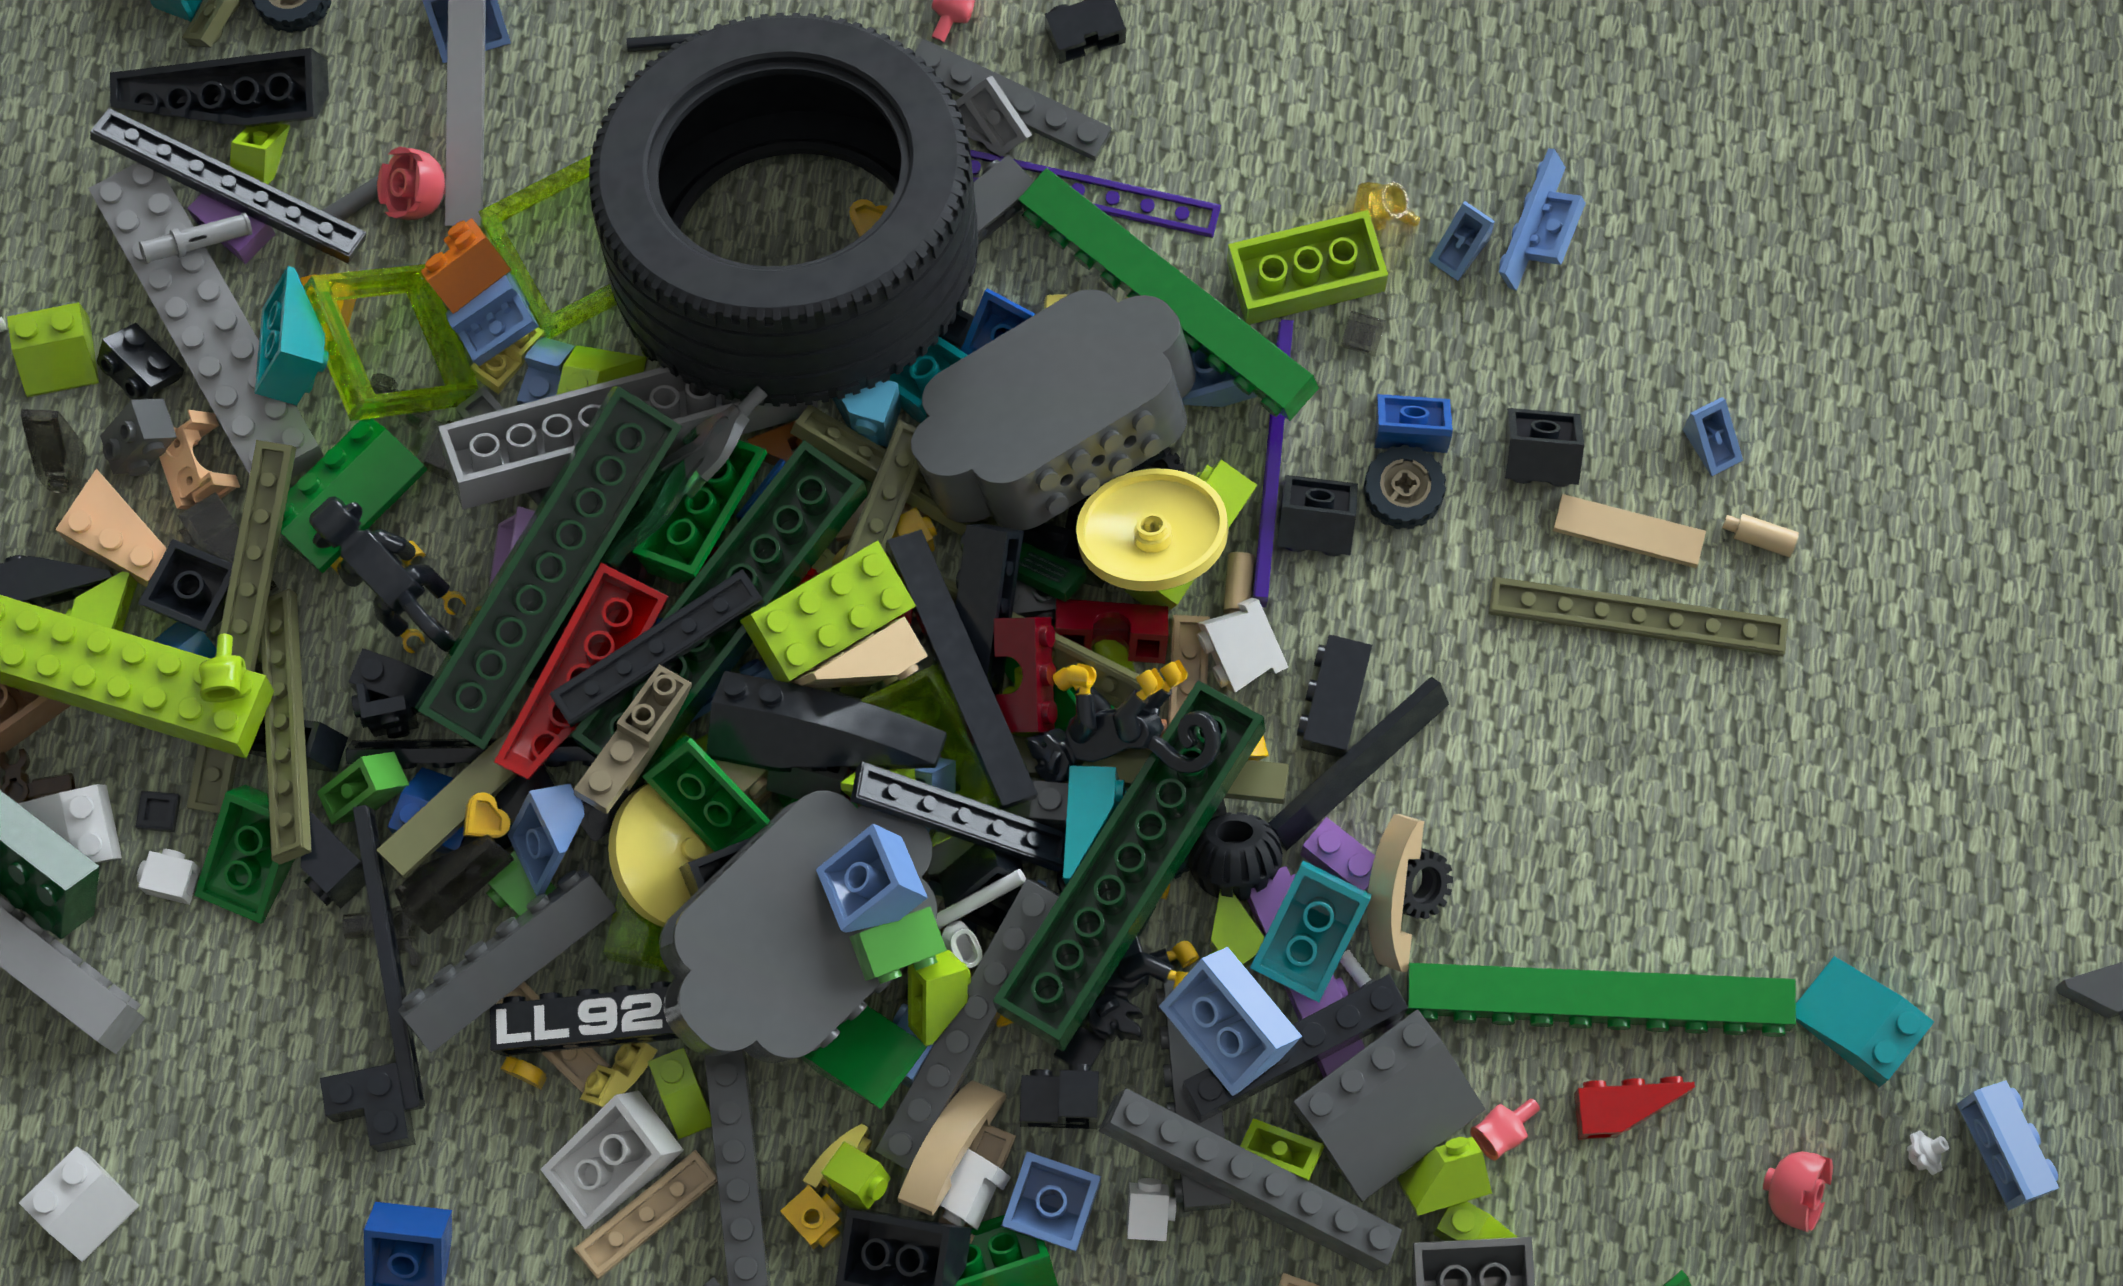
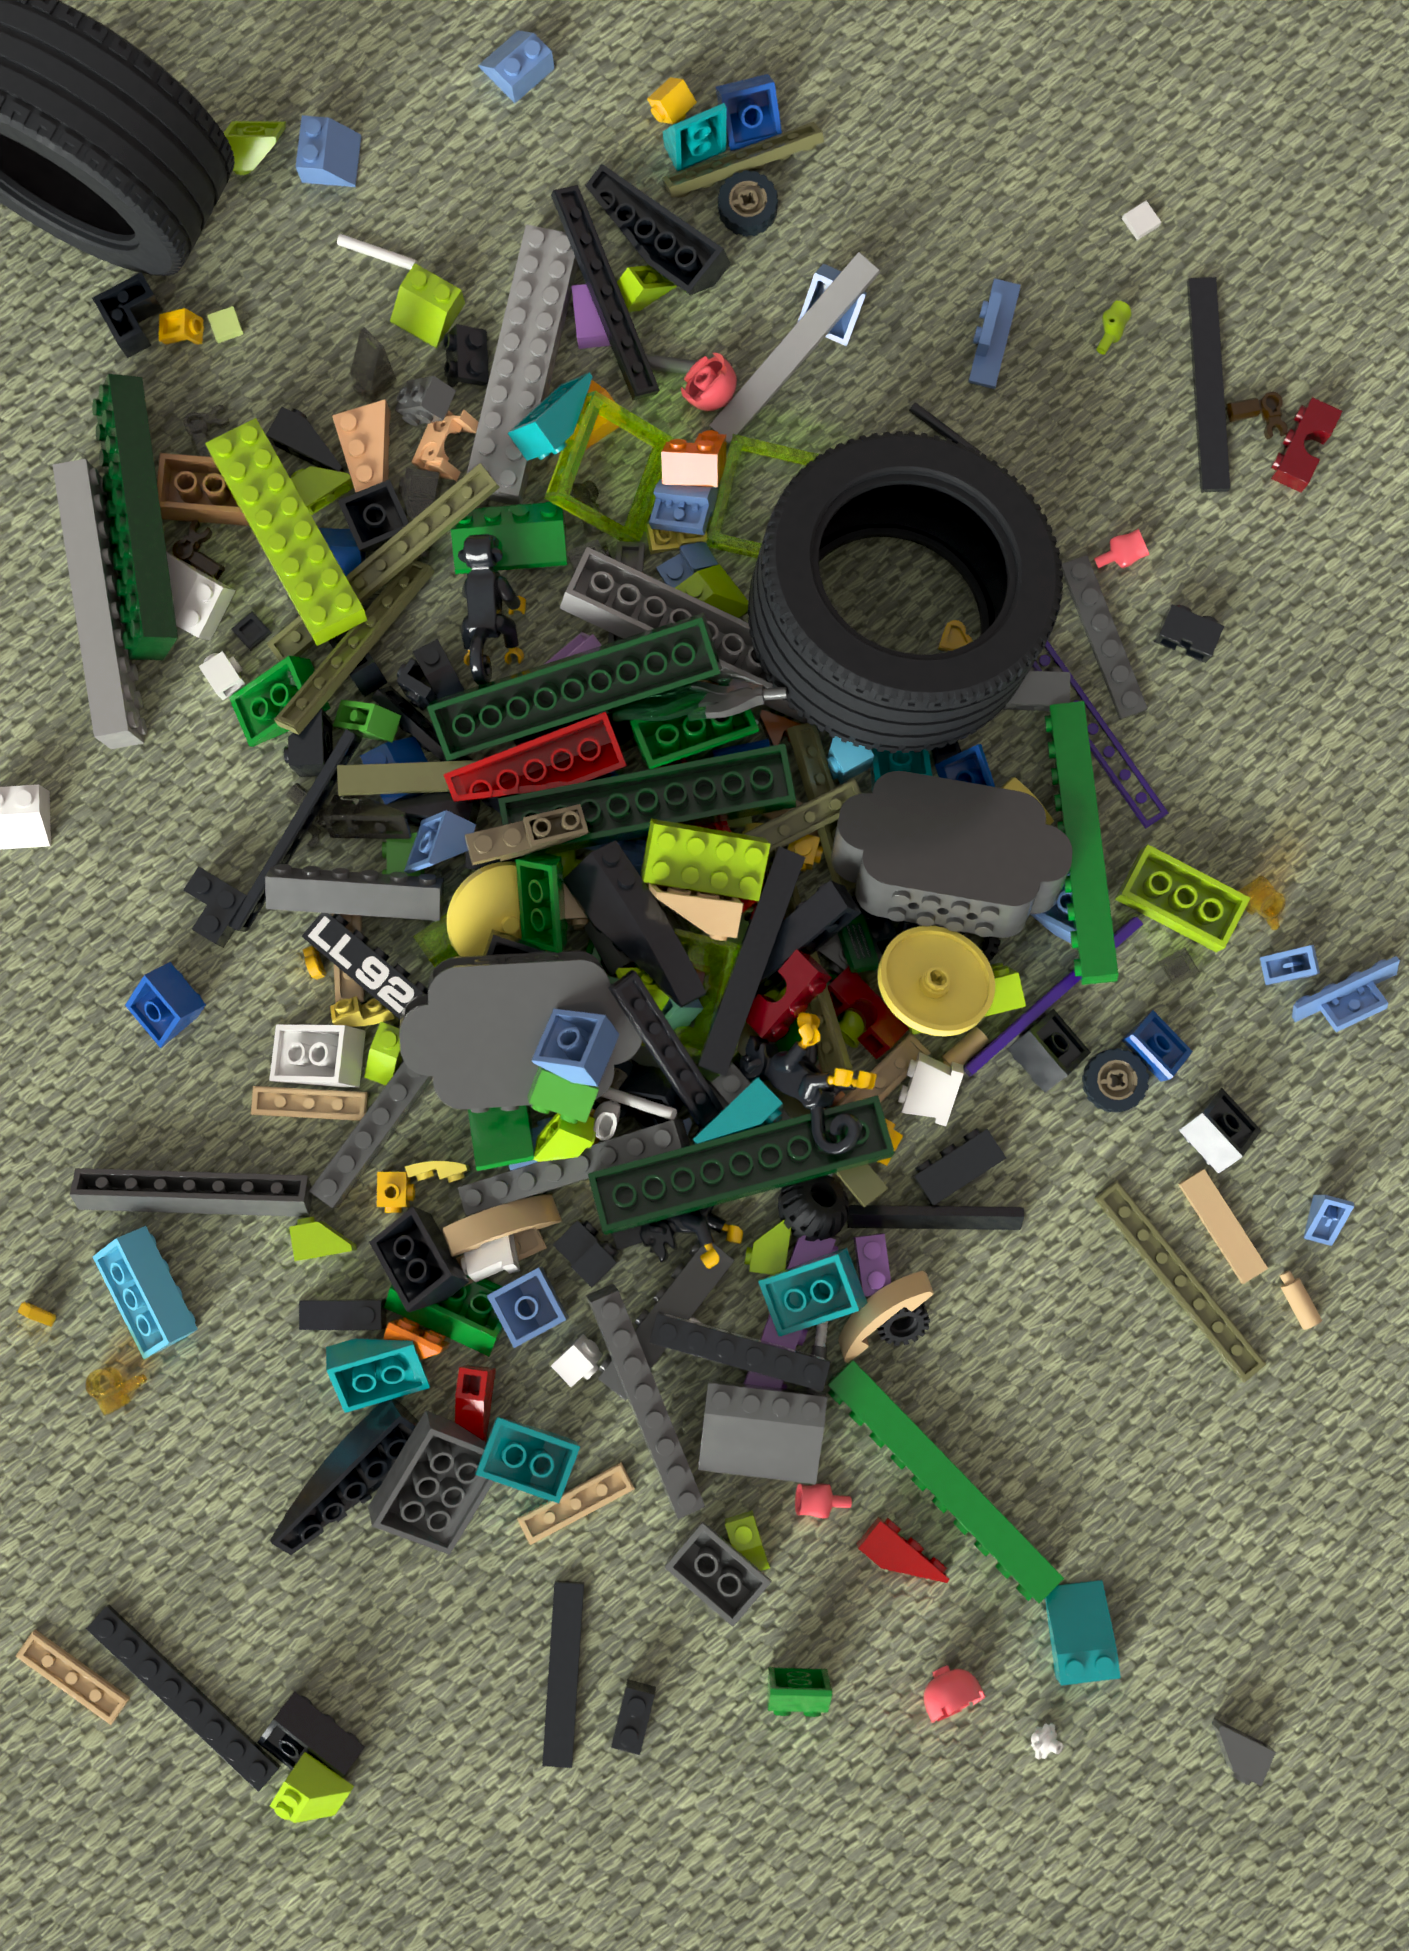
camera: 45 degrees right, 10 degrees up
(194, 238) = (556, 308): light grey pin -> none
(223, 673) = (337, 586): lime piece -> none
(484, 817) = (412, 801): yellow tile -> none
(656, 646) = (590, 792): black tile -> none
(856, 1177) = (432, 1194): lime slope -> none
(992, 118) = (1080, 639): light grey wing -> none
(1229, 1020) = (712, 1307): light blue slope -> none
(1283, 1148) = (678, 1399): lime slope -> none
(1446, 1176) = (756, 1503): lime slope -> none
(2008, 1144) = (1096, 1784): light blue slope -> none

